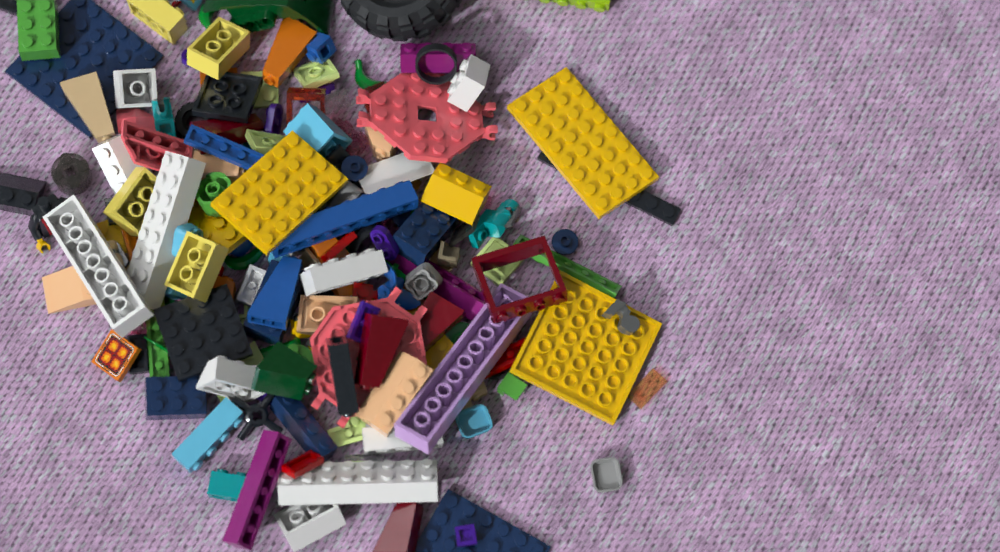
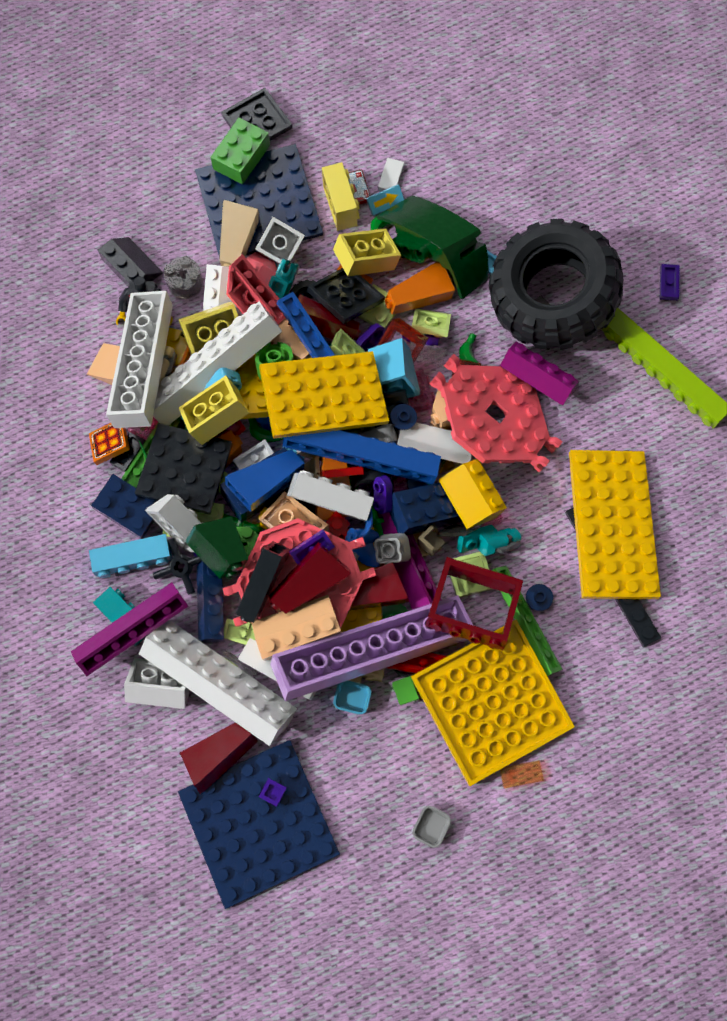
camera: 40 degrees right, 0 degrees up
(302, 464) = (182, 633): red tile -> none
(320, 48) = (449, 305): blue brick -> none
(436, 47) = (521, 388): black tyre -> none
(468, 82) = (549, 408): white brick -> none
(627, 323) = (542, 706): dark grey leg -> none

